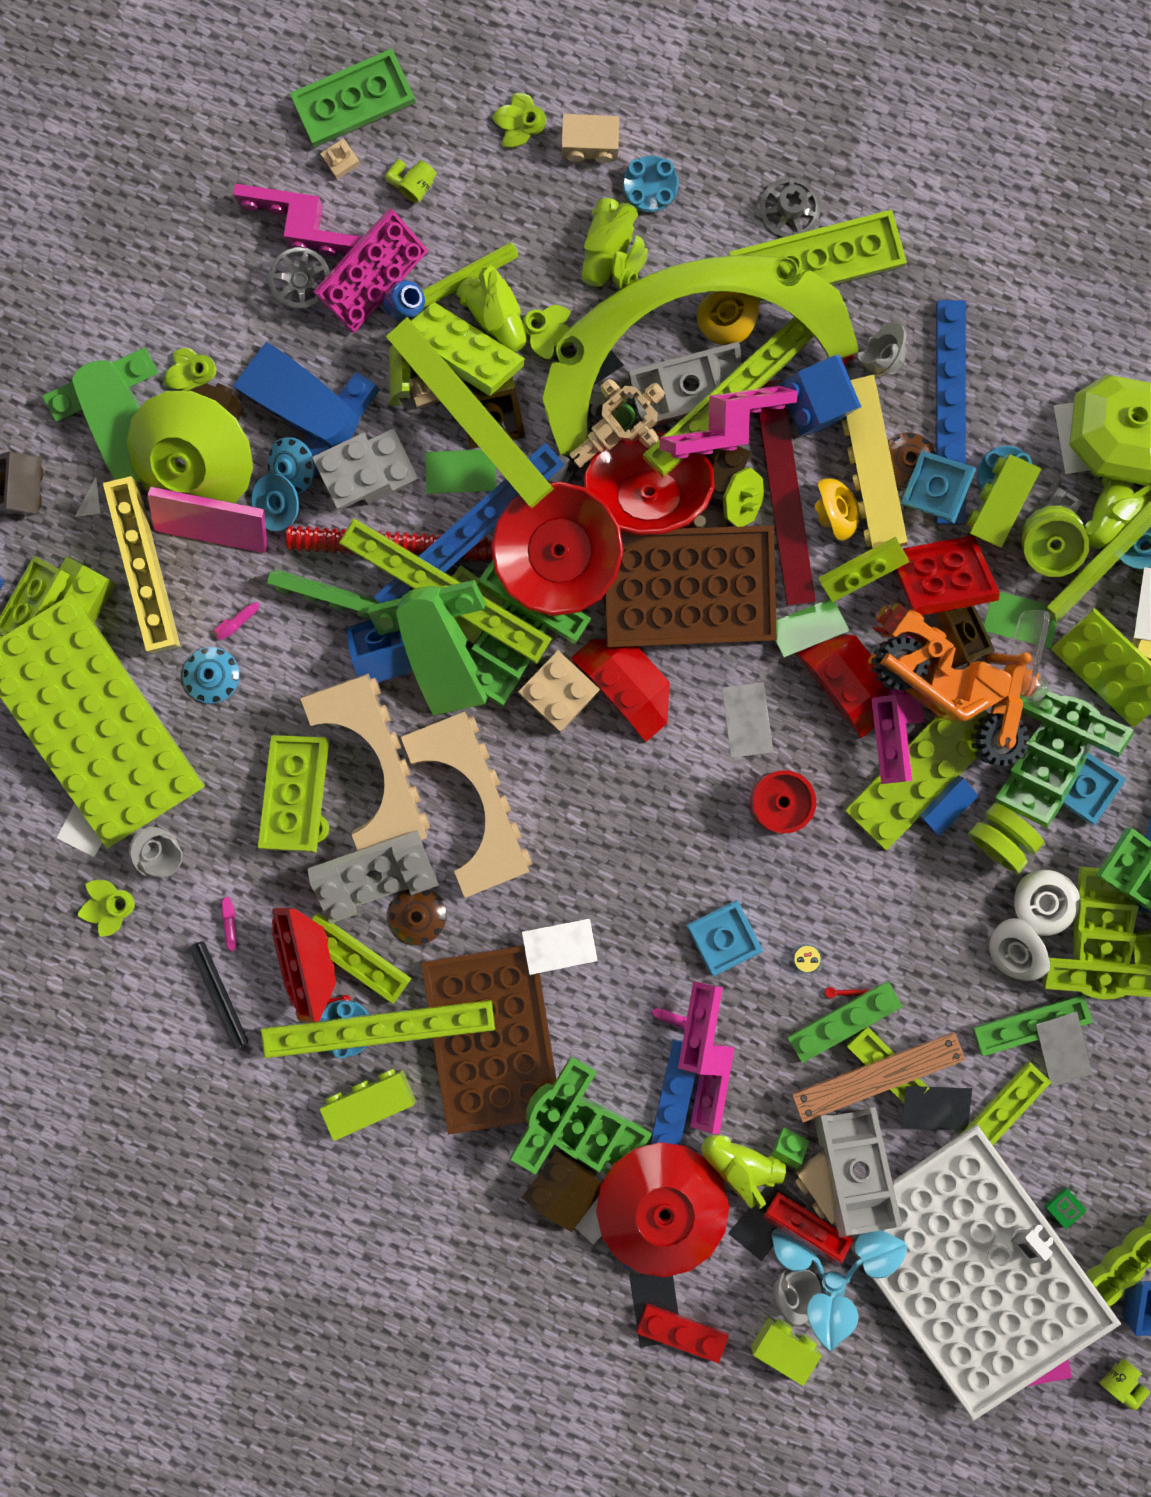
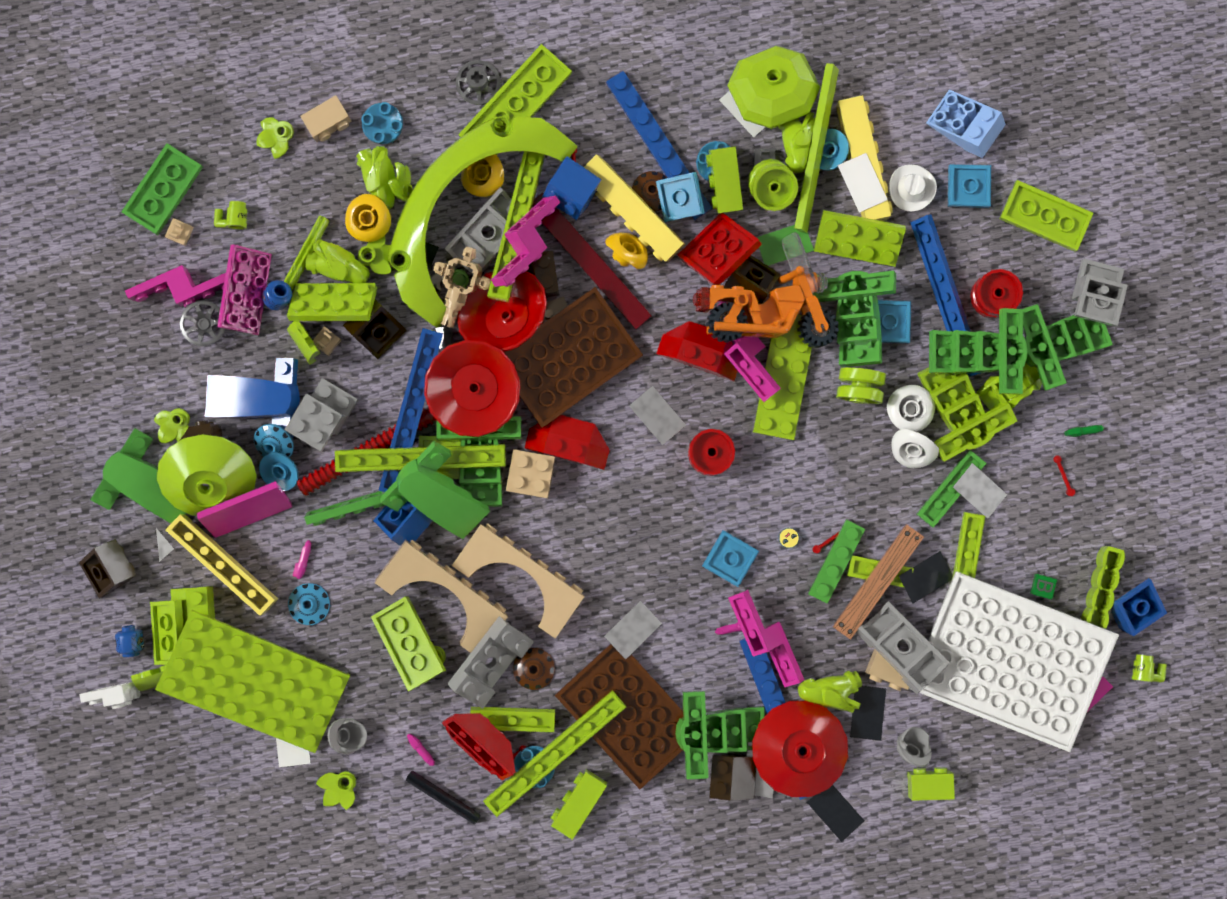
camera: 30 degrees left, 0 degrees up
(459, 471) = (380, 377): bright green sticker -> none
(469, 412) = (363, 339): lime tile -> none
(564, 280) = (367, 218): none -> yellow hat
(682, 1333) = (861, 816): red plate -> none
(743, 497) = (565, 281): lime piece -> none
(790, 1148) = (853, 660): bright green plate -> none
(808, 1229) = (895, 702): red tile -> none
(809, 627) = (658, 334): sticker -> none
(831, 1313) = (941, 743): medium azure plant -> none
(864, 569) = (668, 277): lime plate -> none
(885, 351) = (594, 134): light grey piece -> none
(948, 805) = (814, 388): blue tile -> none
(1032, 1246) = (1035, 623): flat silver tile -> none

